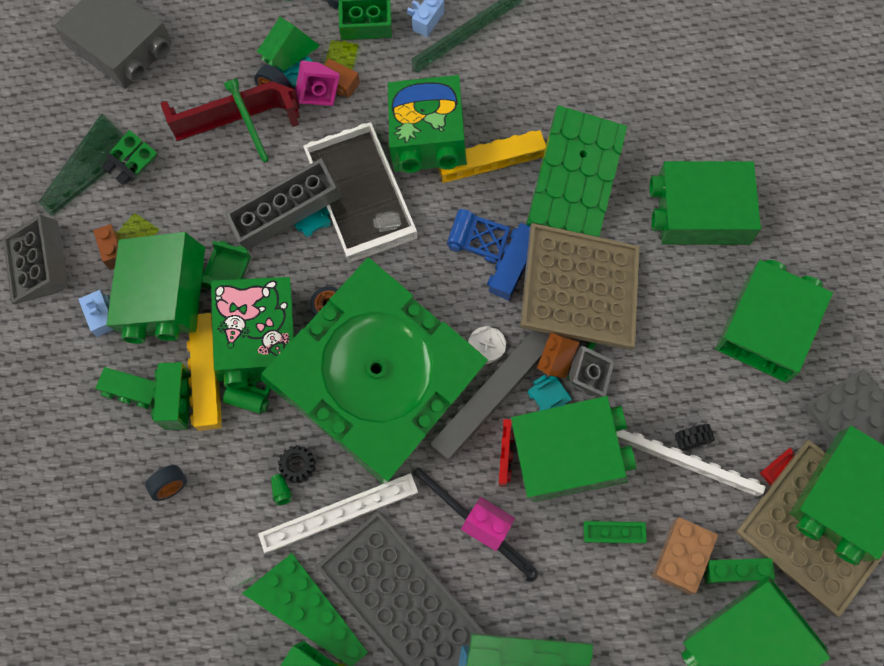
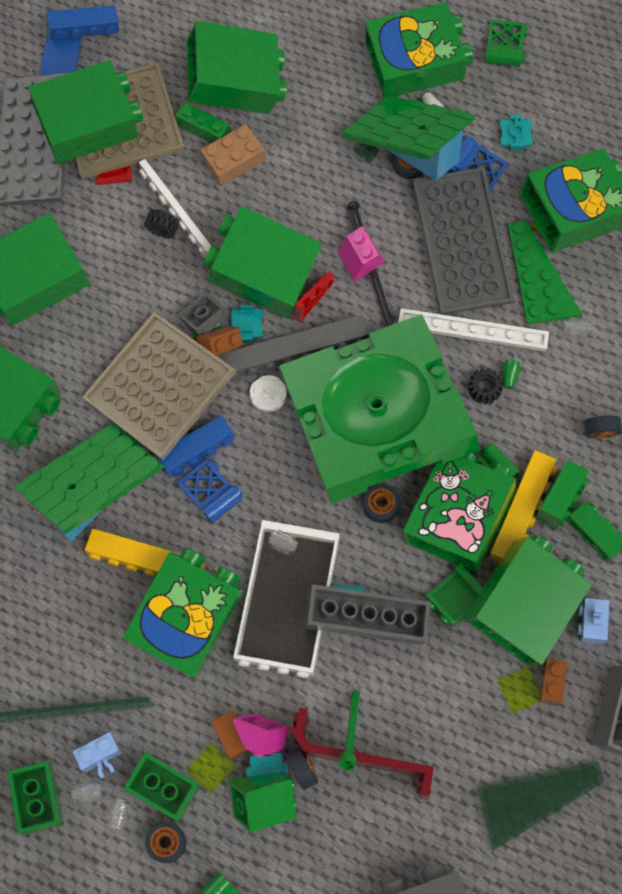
camera: 145 degrees left, 0 degrees up
(129, 157) = (489, 768): green hips -> none
(614, 532) = (271, 199): green plate -> none

